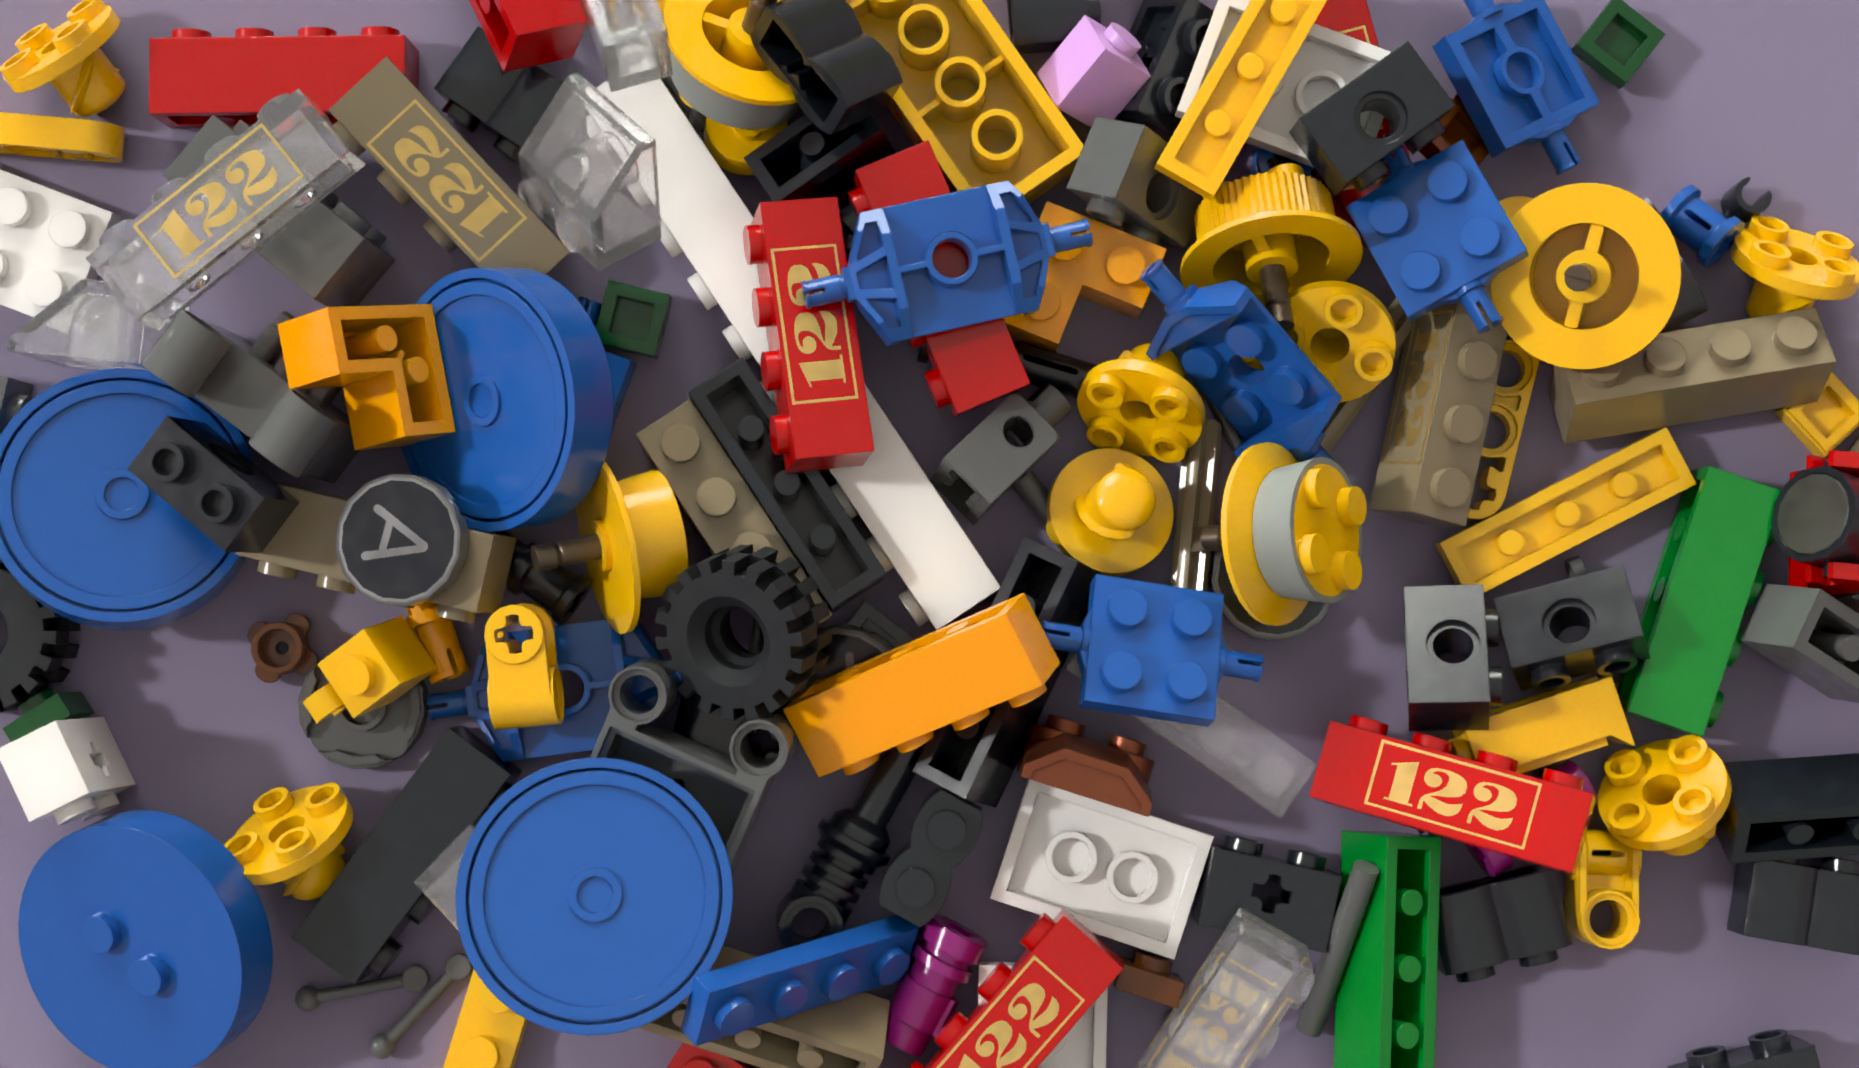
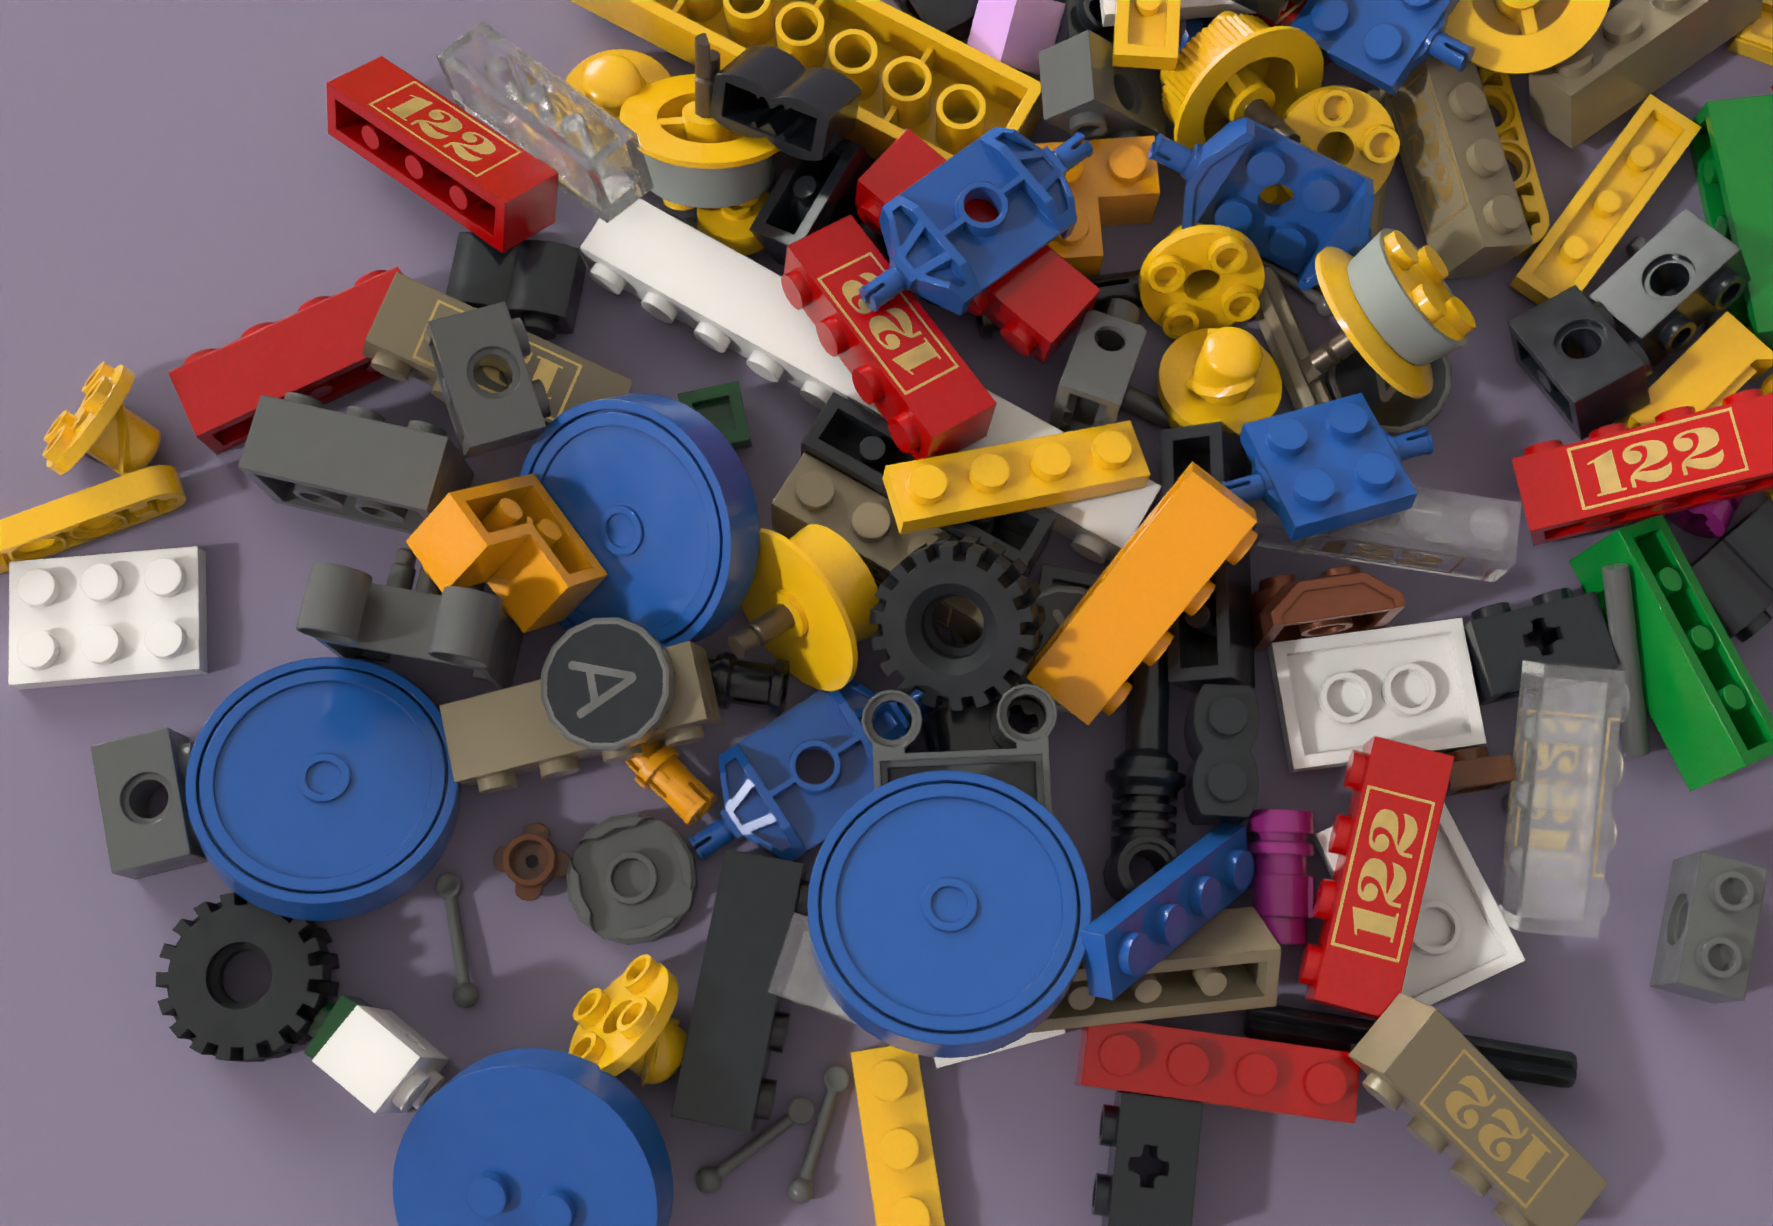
camera: 30 degrees left, 10 degrees down
(86, 331) = (236, 636): clear slope -> none
(200, 634) = (450, 887): none -> dark grey hinge
(213, 485) = (409, 718): black brick -> none
(224, 209) = (312, 460): clear brick -> none
(370, 670) = (628, 831): yellow brick -> none
(401, 236) = (478, 417): none -> dark grey brick
(523, 683) = (776, 765): yellow piece -> none
(592, 175) = (625, 297): clear slope -> none
(865, 520) = (1015, 477): none -> yellow plate

